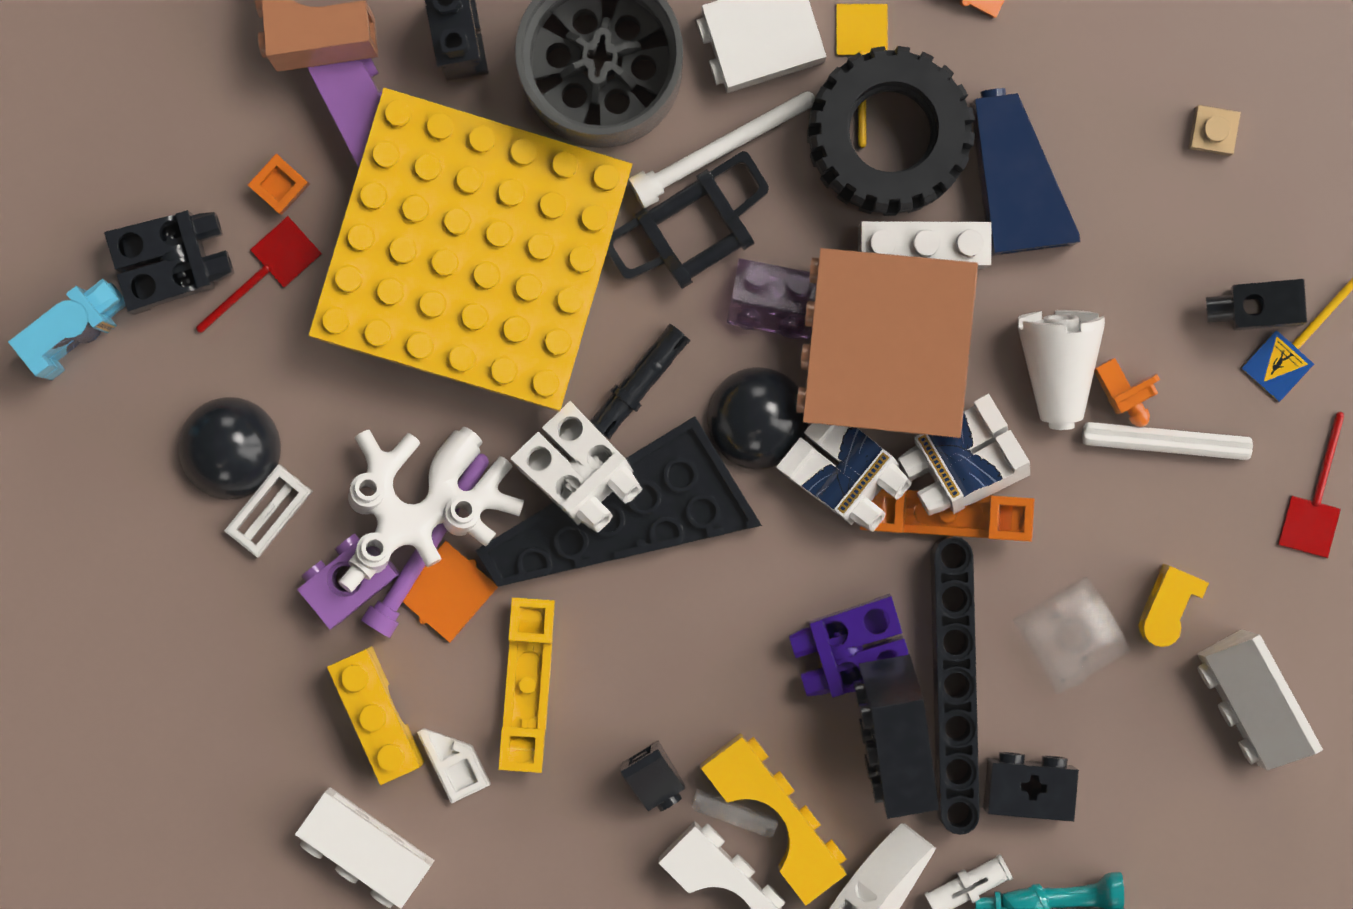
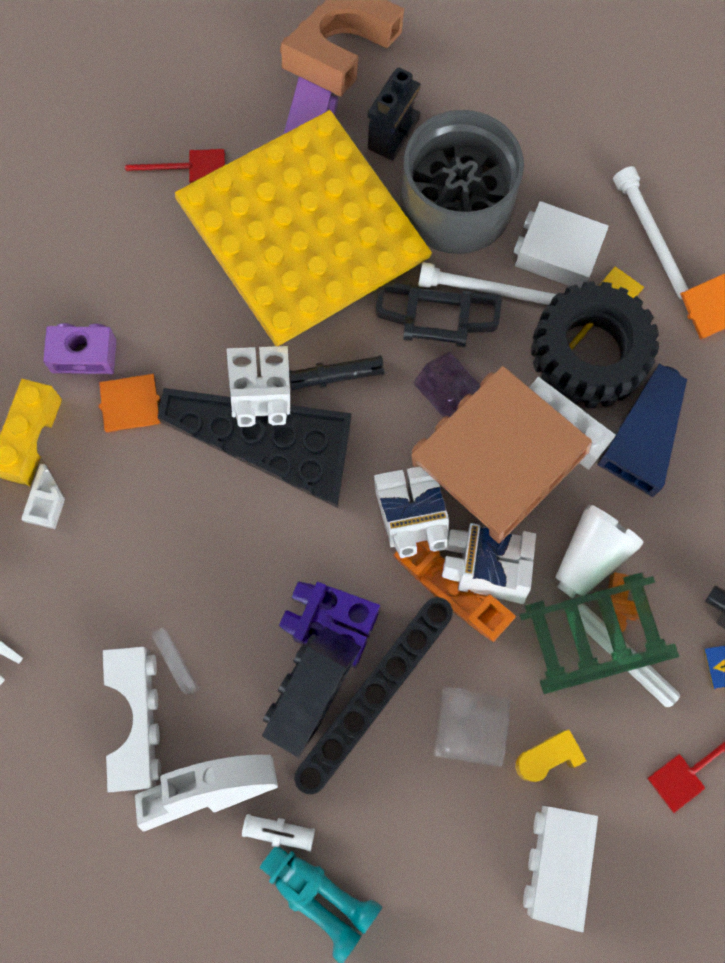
camera: 35 degrees right, 15 degrees down
(66, 327) = (57, 105): medium azure hips -> none
(182, 260) = (140, 117): black hips -> none
(229, 447) = (84, 236): black piece -> none
(278, 184) = (233, 127): orange plate -> none
(291, 483) = (74, 288): white tile -> none
(384, 614) = (82, 383): medium lavender piece -> none
(413, 523) = (140, 341): white plant -> none
(527, 685) = (125, 488): yellow slope -> none
(653, 777) = (146, 596): black slope -> none
(755, 417) = (383, 444): black piece -> none
(808, 861) = (195, 729): yellow arch -> none
(1052, 801) = (377, 821): black brick -> none
(1170, 453) = (622, 657): none -> clear green fence

